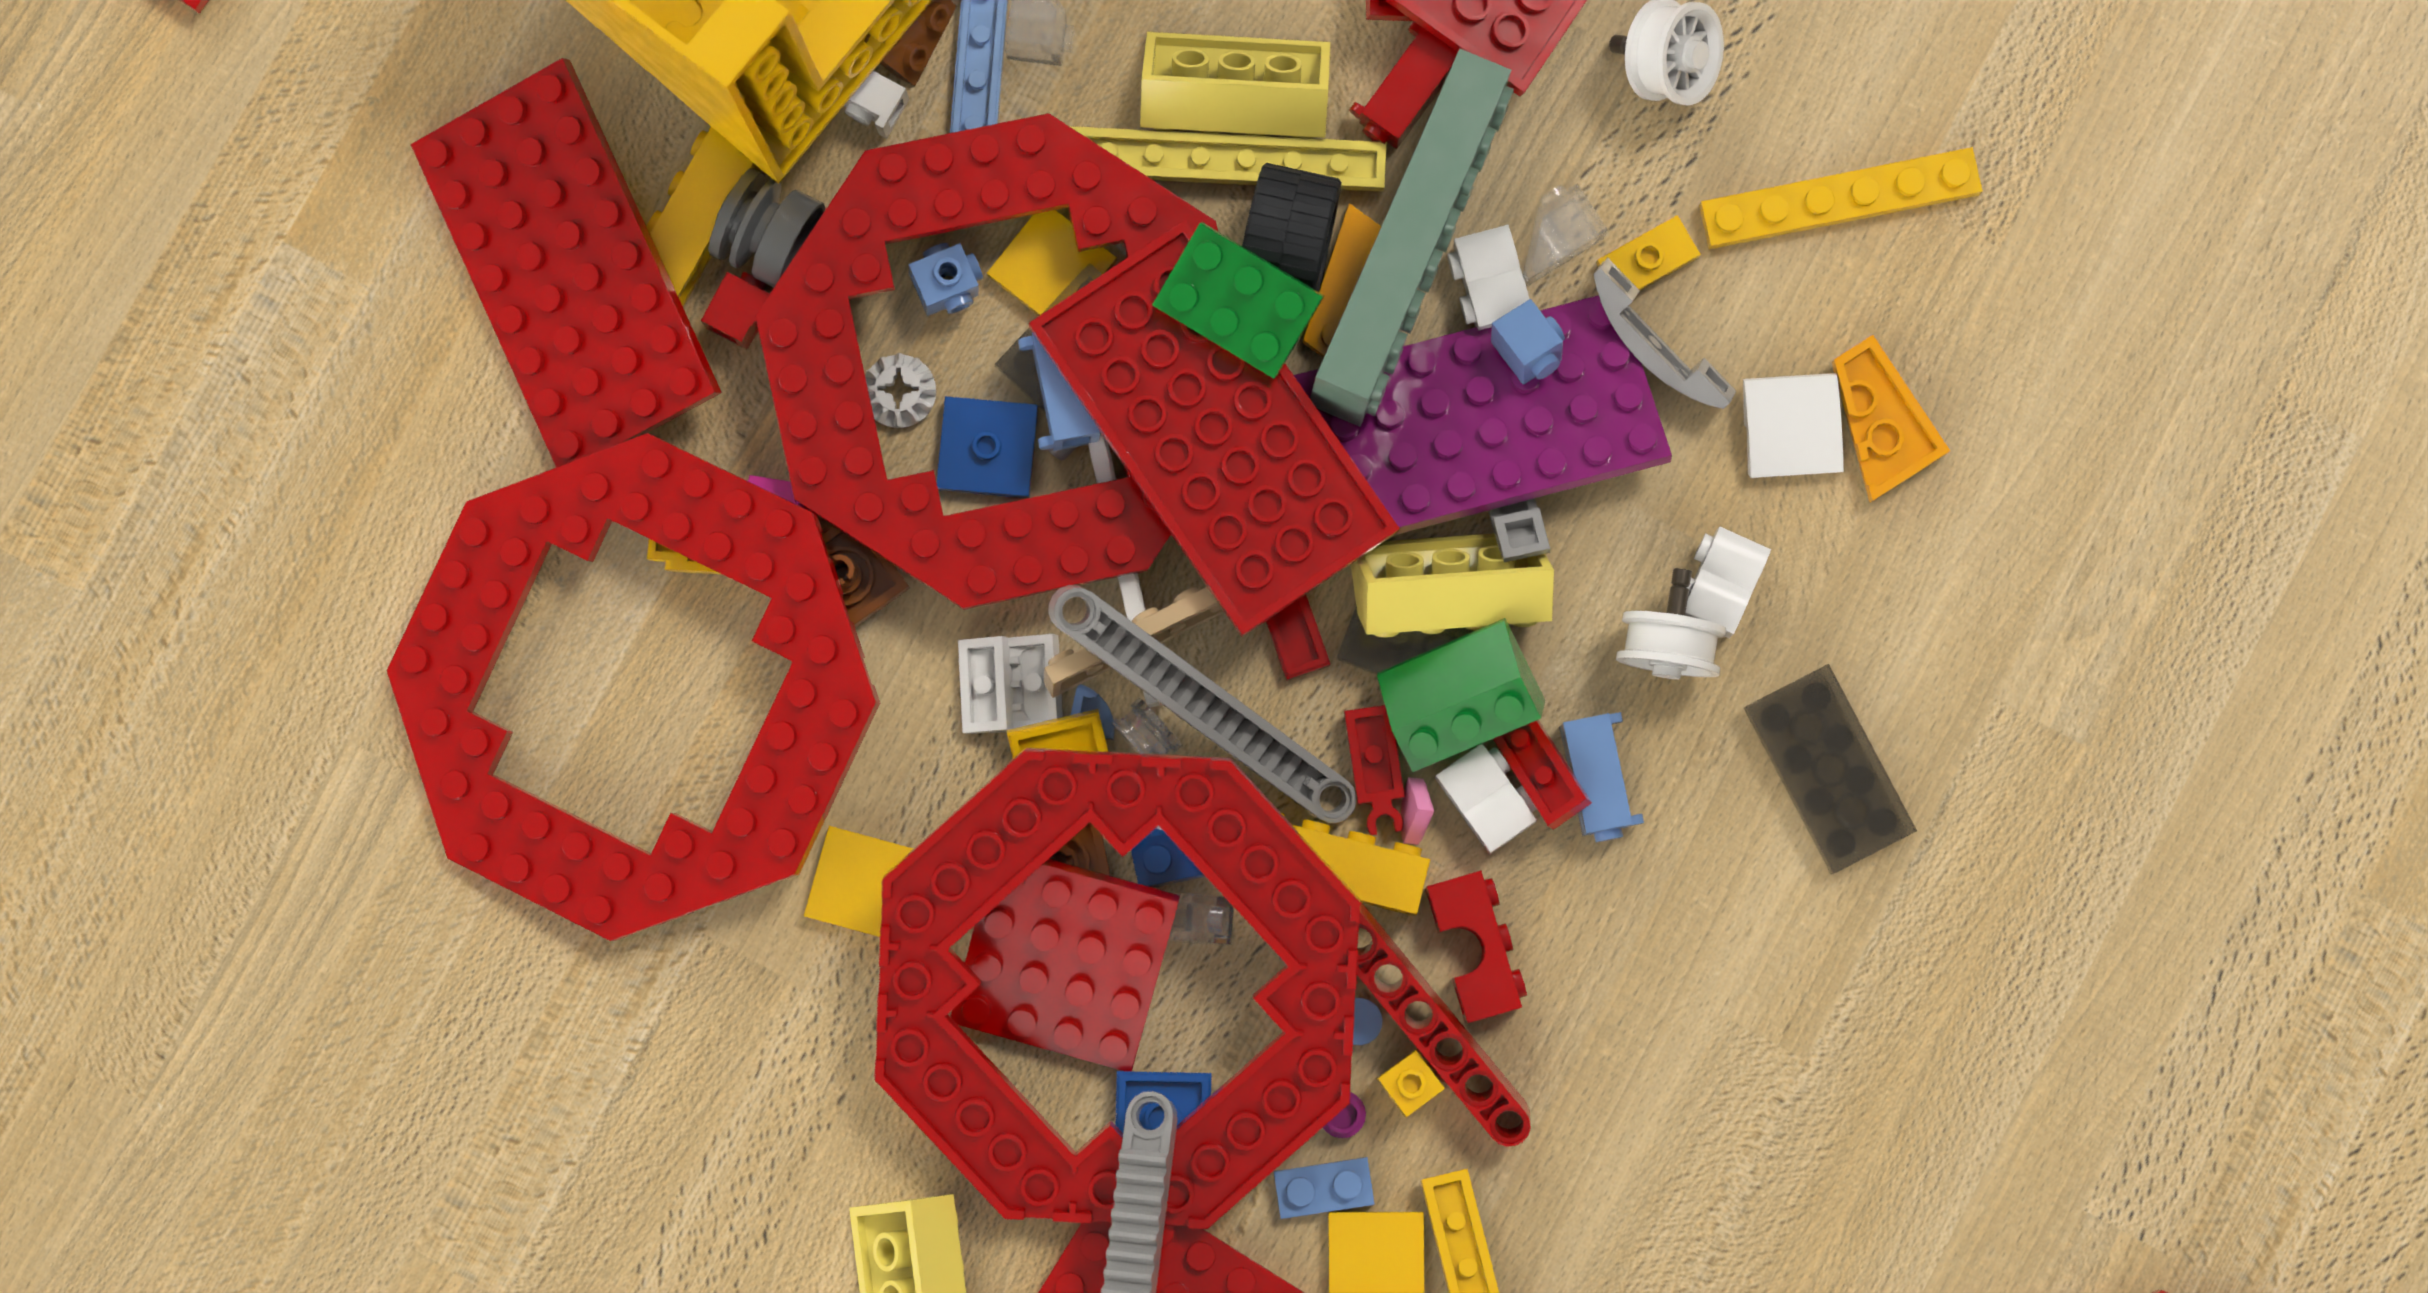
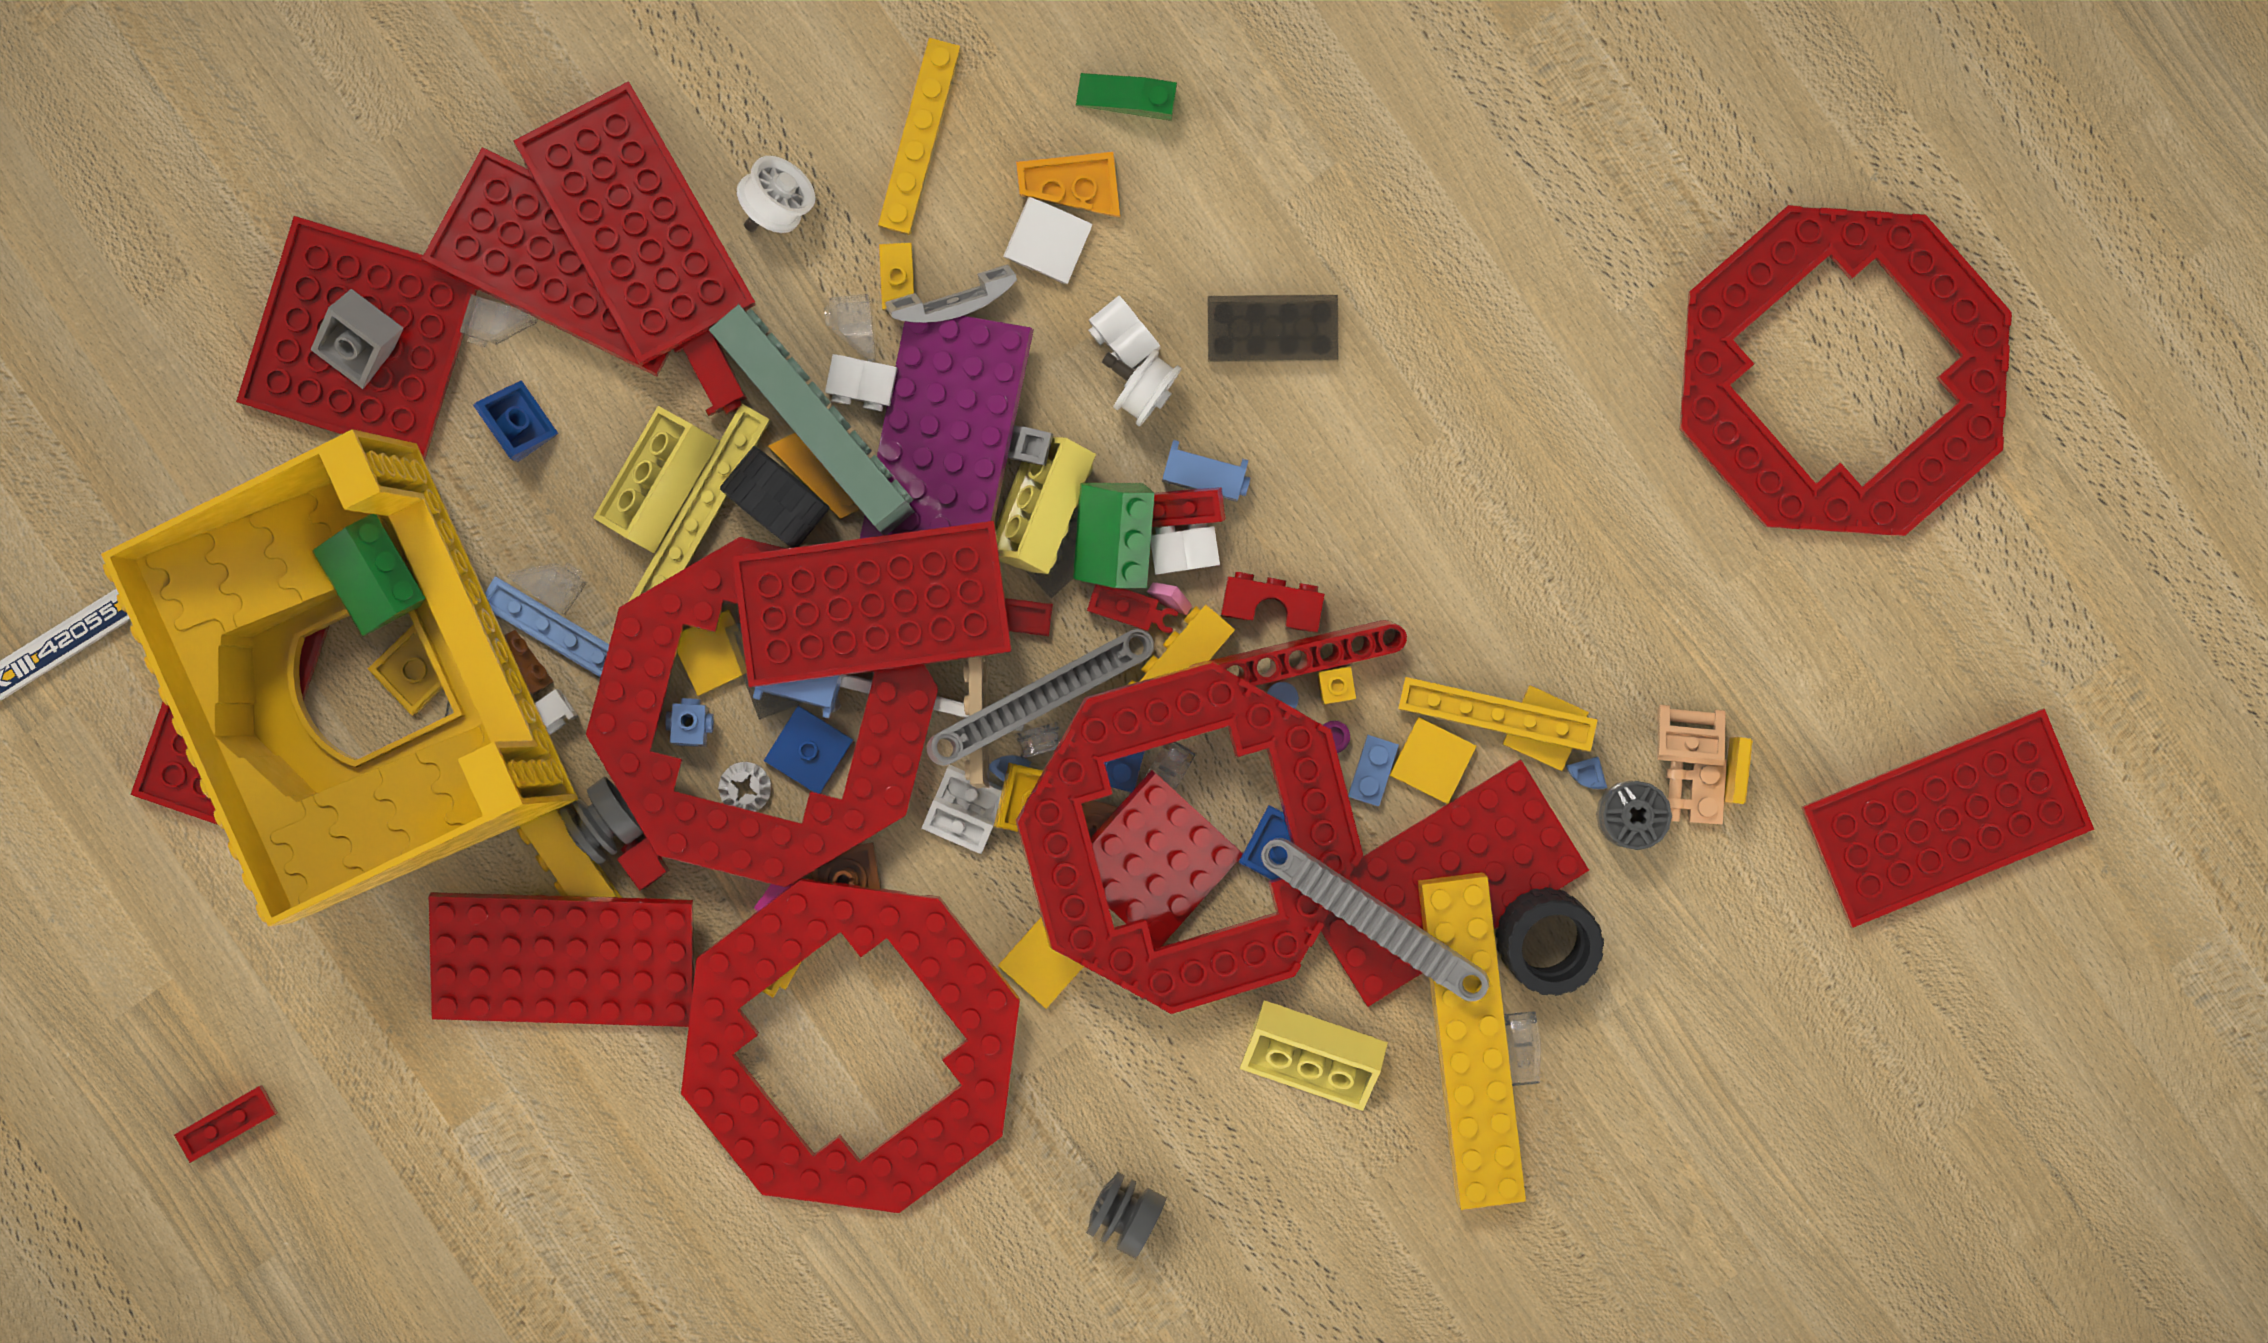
camera: 65 degrees left, 5 degrees up
(584, 1152) = (1126, 1214): none -> dark grey wheel
(1238, 300) = (801, 549): green plate -> none
(1528, 342) = (915, 379): medium blue brick -> none
(2032, 435) = (1127, 95): none -> green slope

